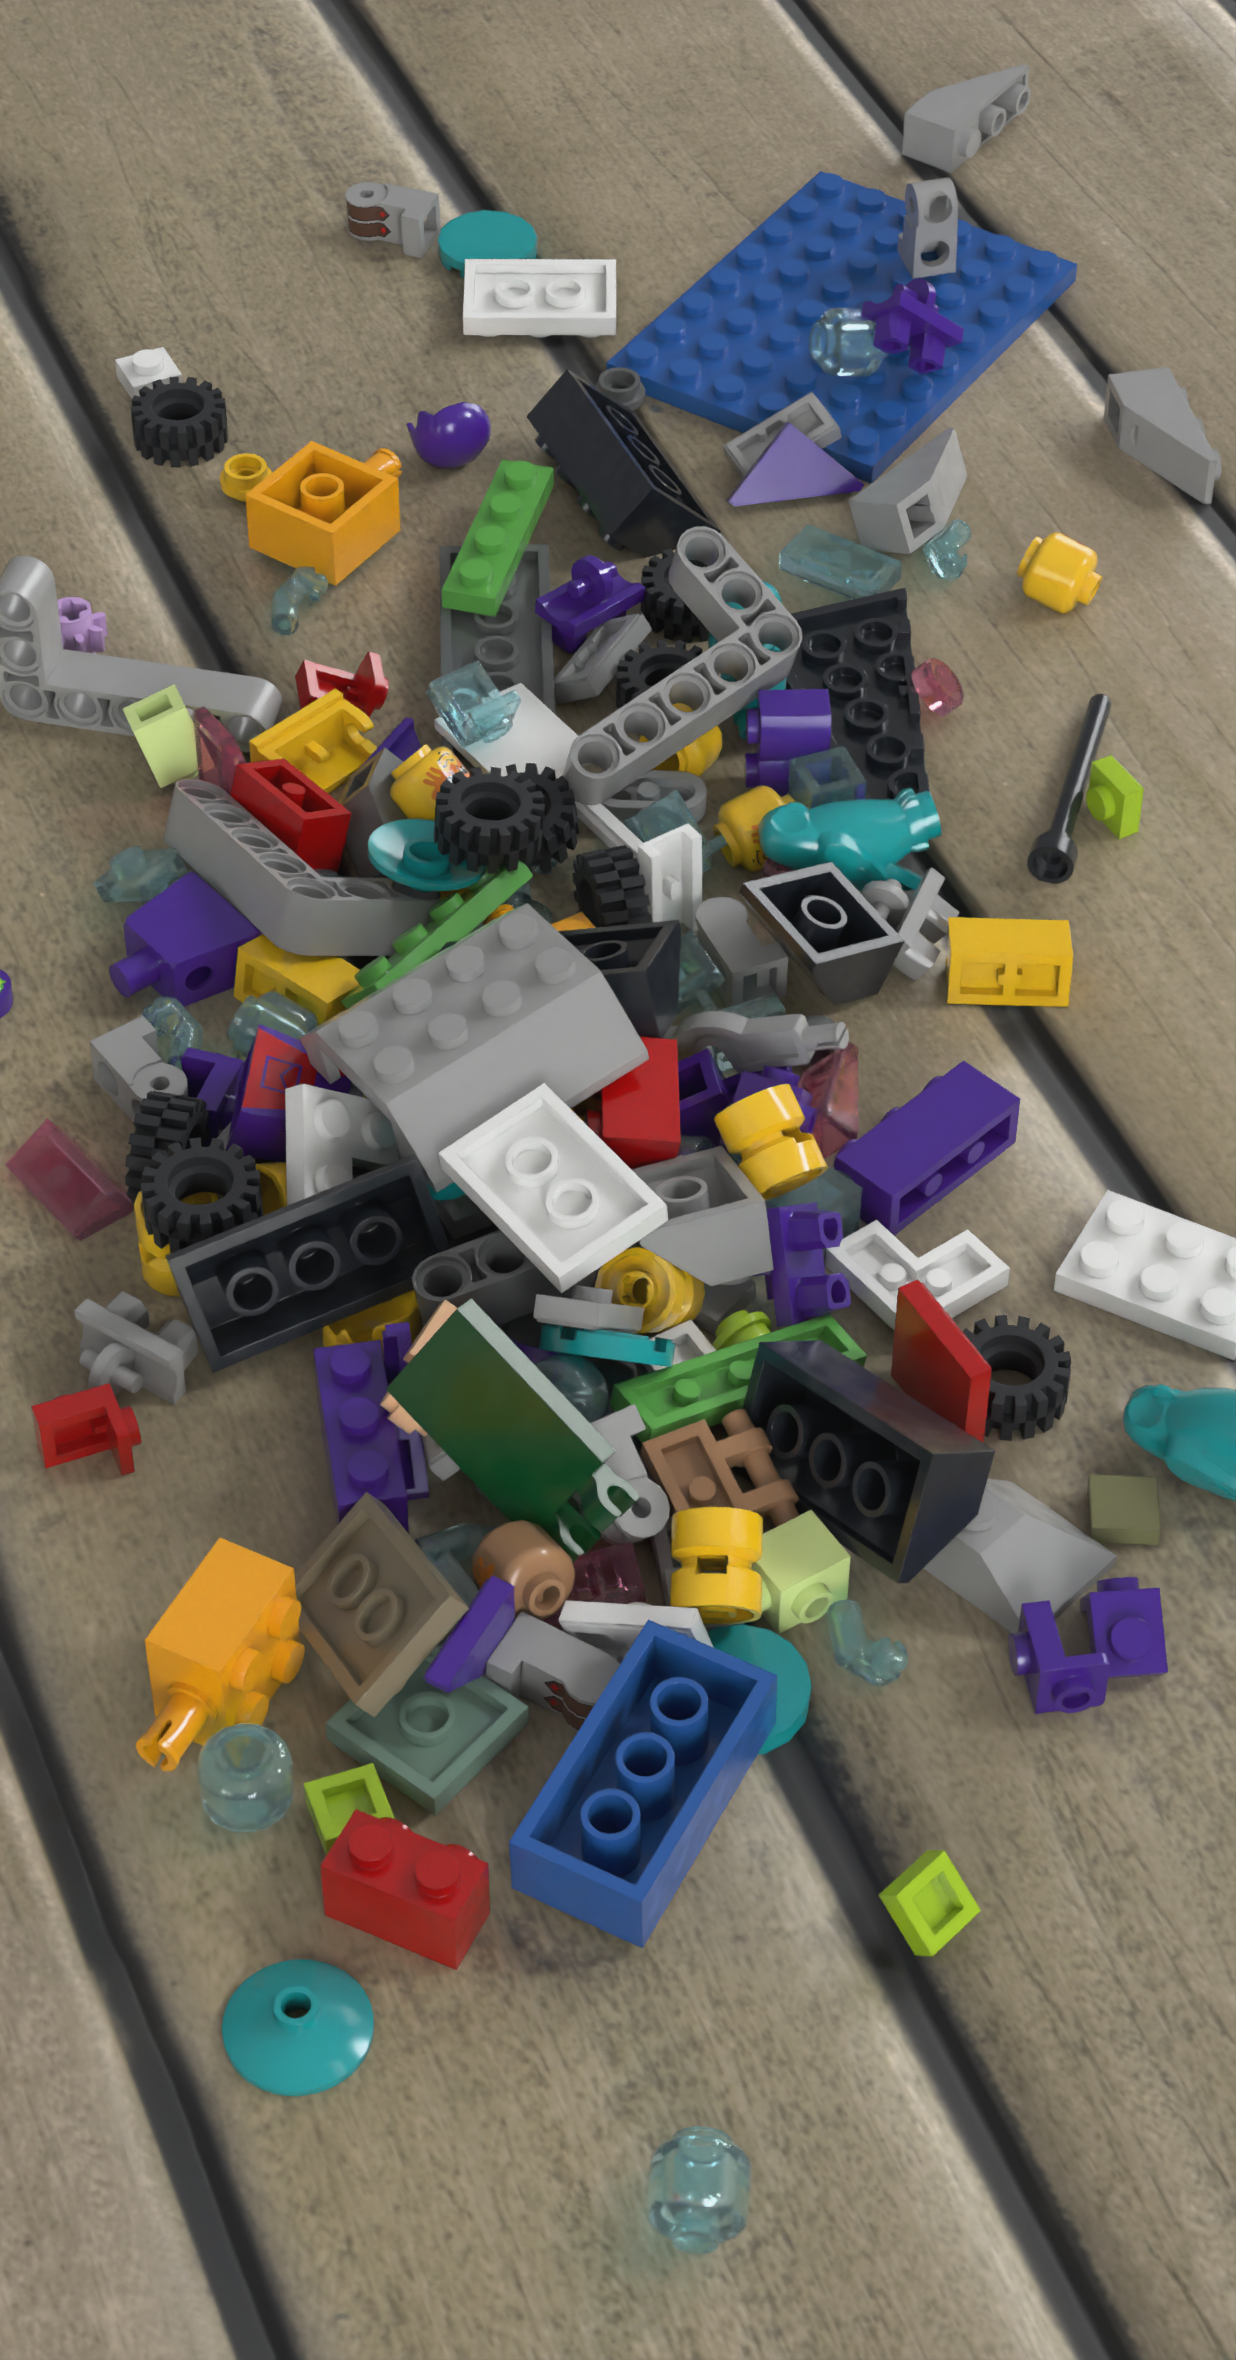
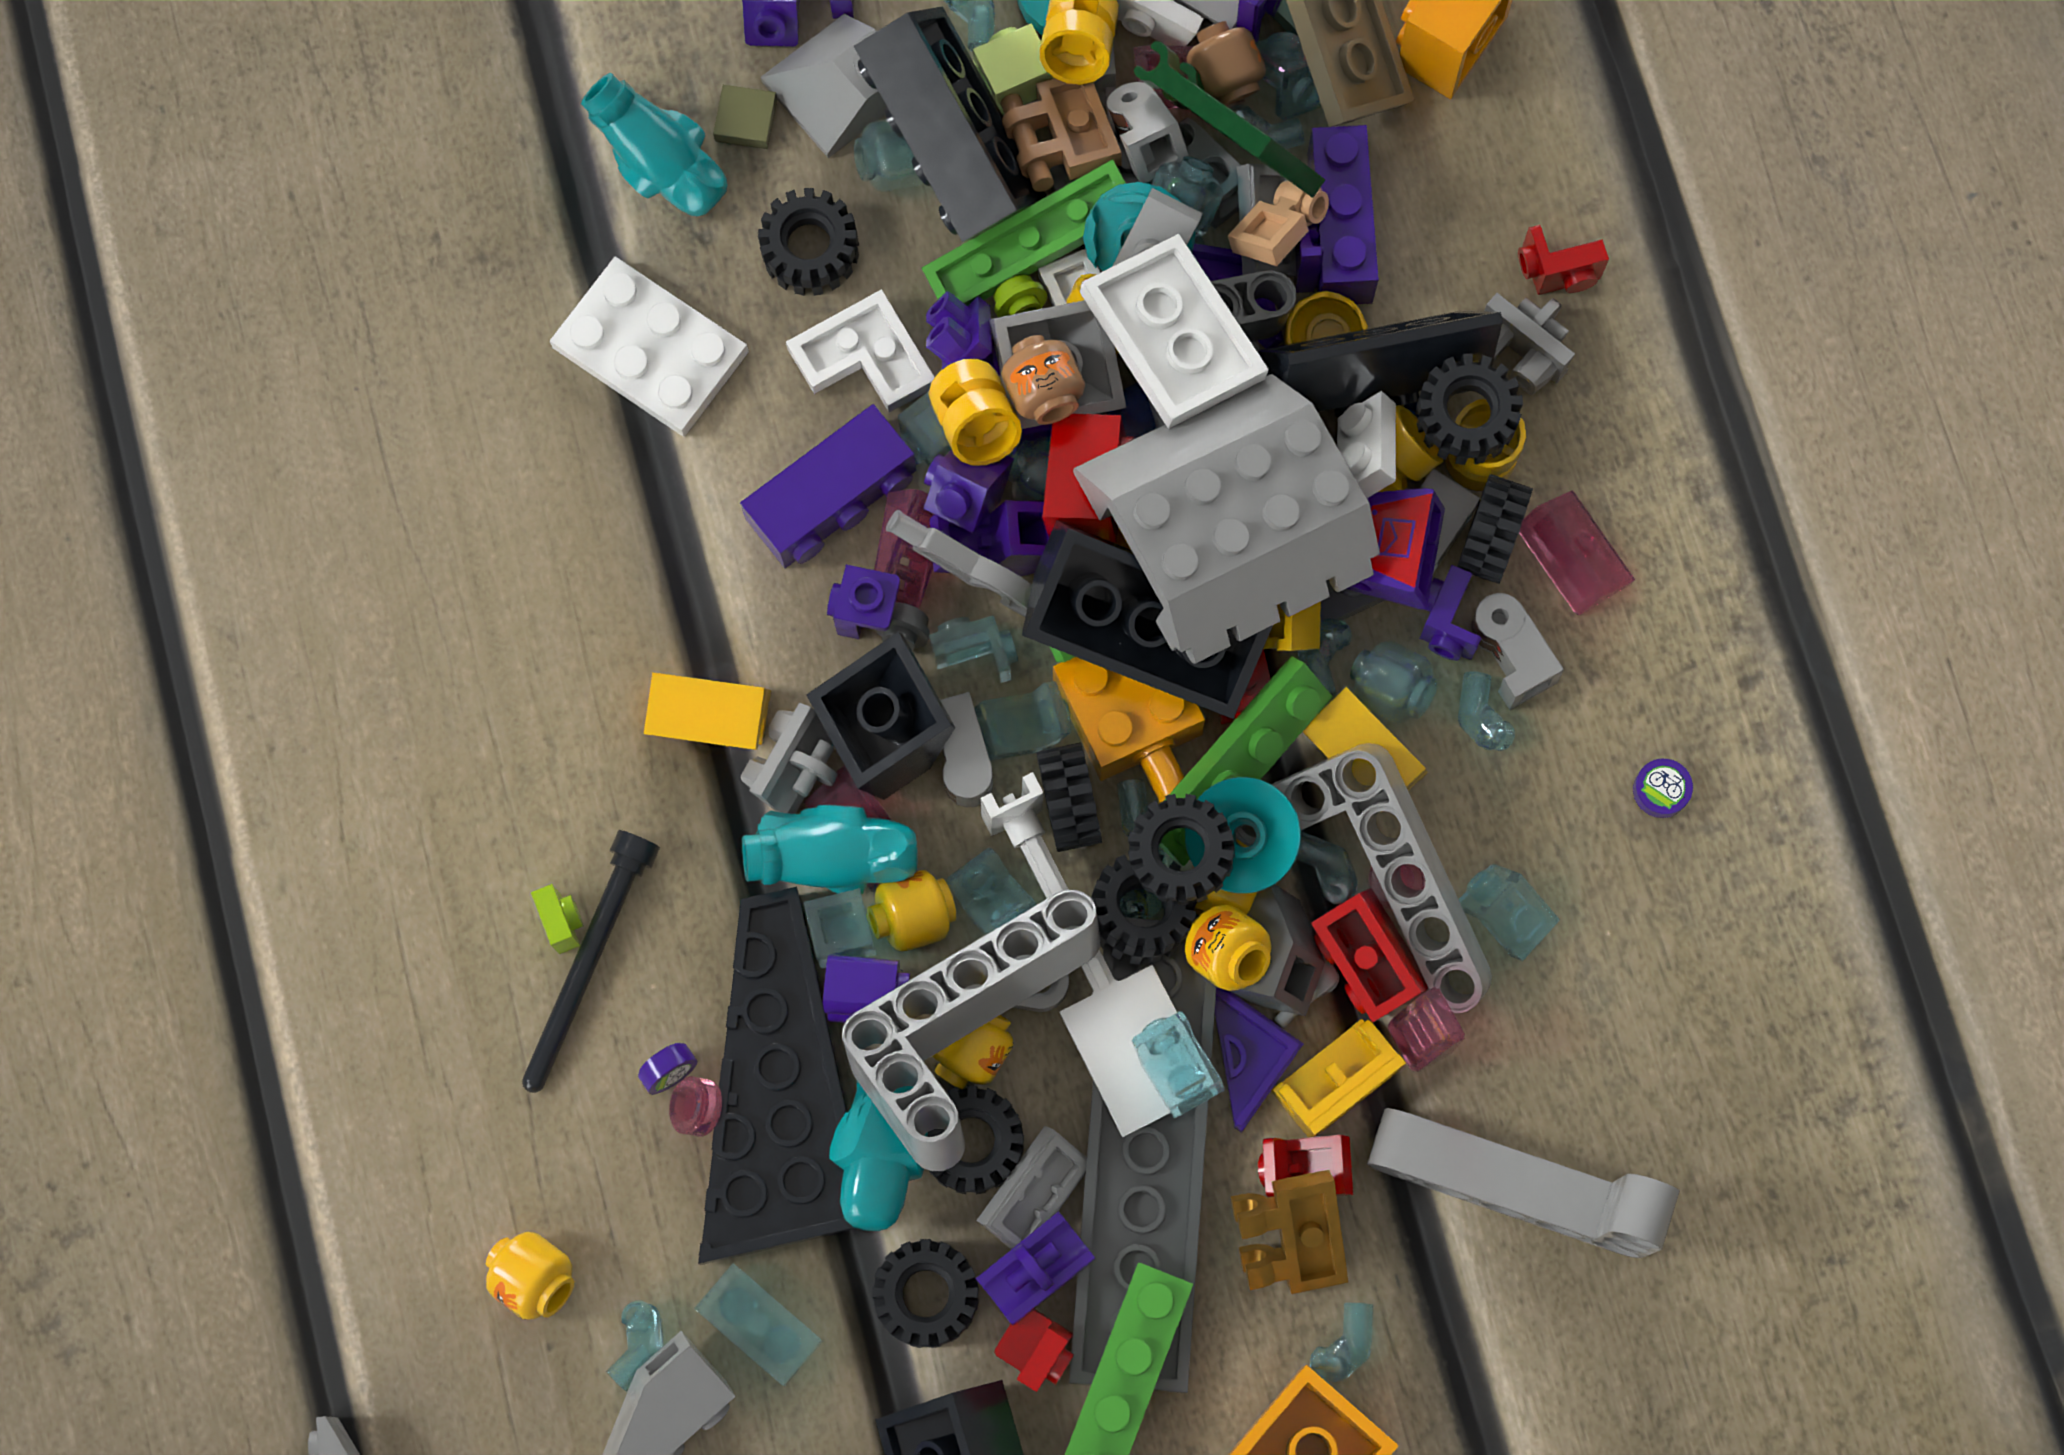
camera: 170 degrees left, 30 degrees up
(80, 627) = (1588, 1282): lavender gear -> none
(165, 735) = (1487, 1094): yellowish green brick -> none
(182, 943) = (1475, 811): dark purple torso -> none
(342, 640) = (1309, 1232): none -> pearl gold plate
(569, 541) = (1036, 1349): none -> red bracket
(696, 1143) = (1043, 379): none -> medium nougat head
(869, 1034) = (863, 600): none -> dark purple bracket
(938, 1361) = (868, 214): red tile -> none
(972, 708) = (667, 1068): none -> dark purple tile

